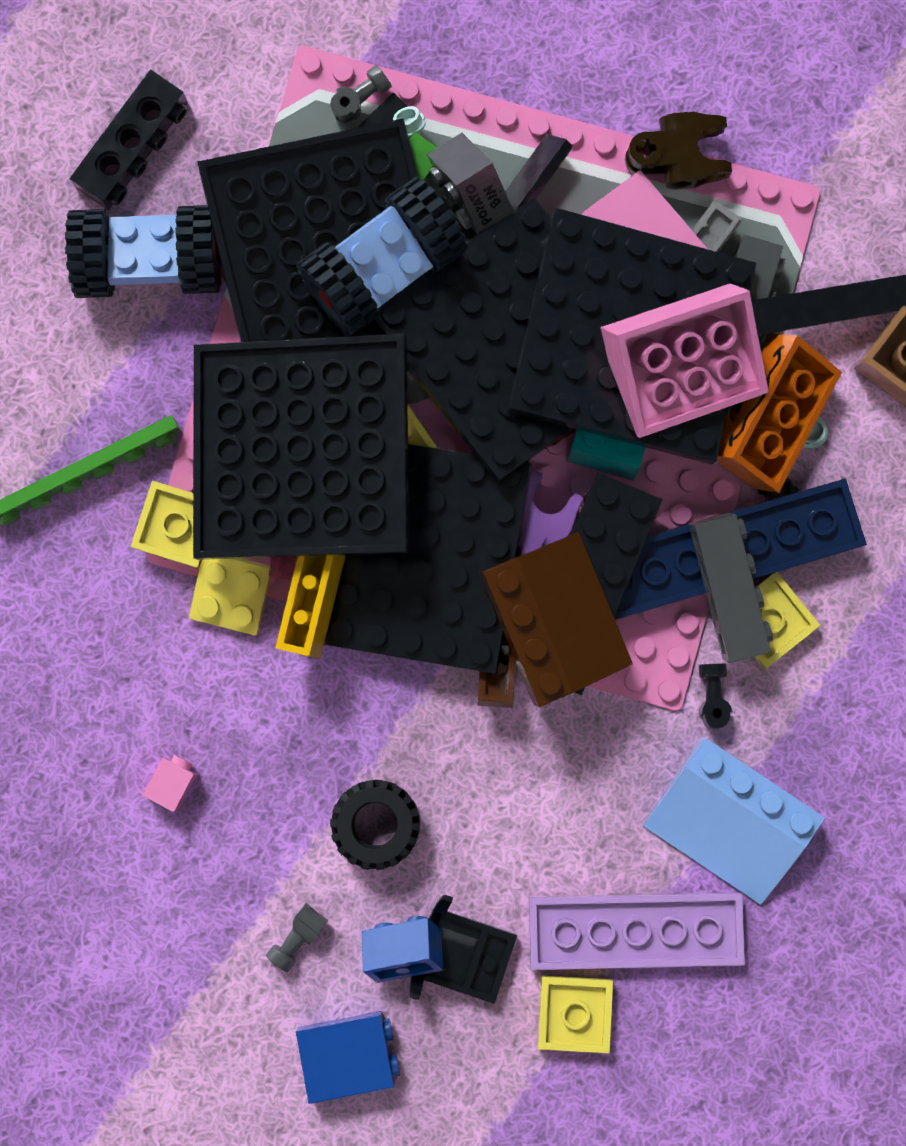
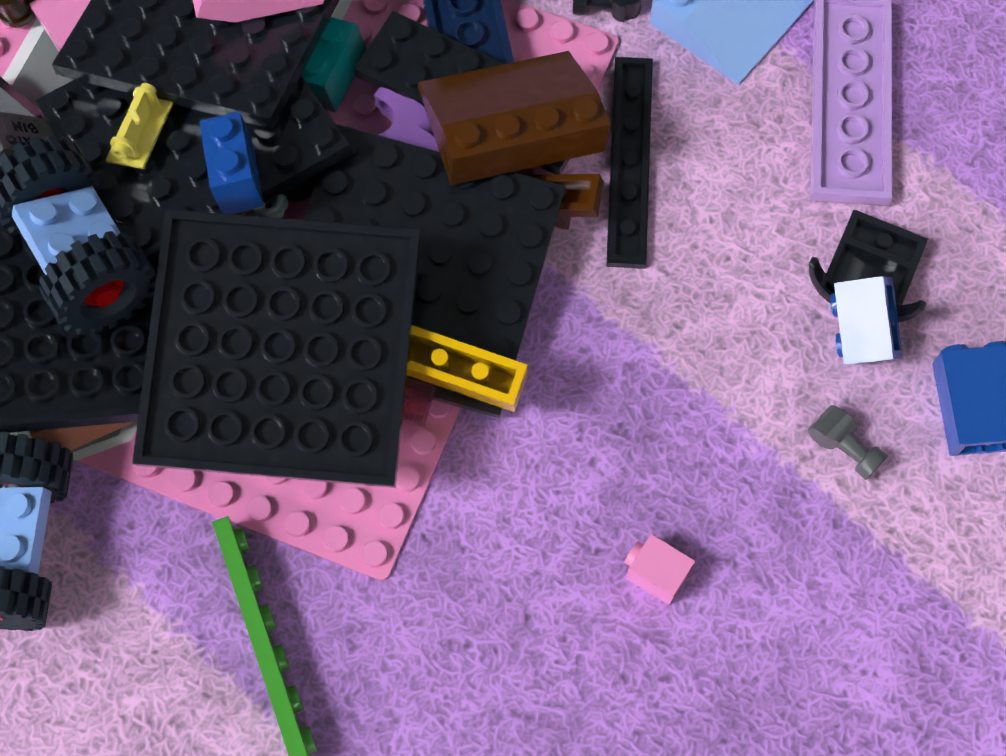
camera: 80 degrees left, 15 degrees down
(167, 525) = (347, 532): light yellow plate -> none
(231, 594) = (437, 480): light yellow plate -> none
(368, 855) = (730, 311): black tyre -> none
(458, 381) = (231, 163): none -> blue brick
(496, 296) = (139, 128): none -> light yellow hinge
(551, 730) = (630, 163): none -> black tile
(575, 1014) = (939, 163): light yellow plate -> none

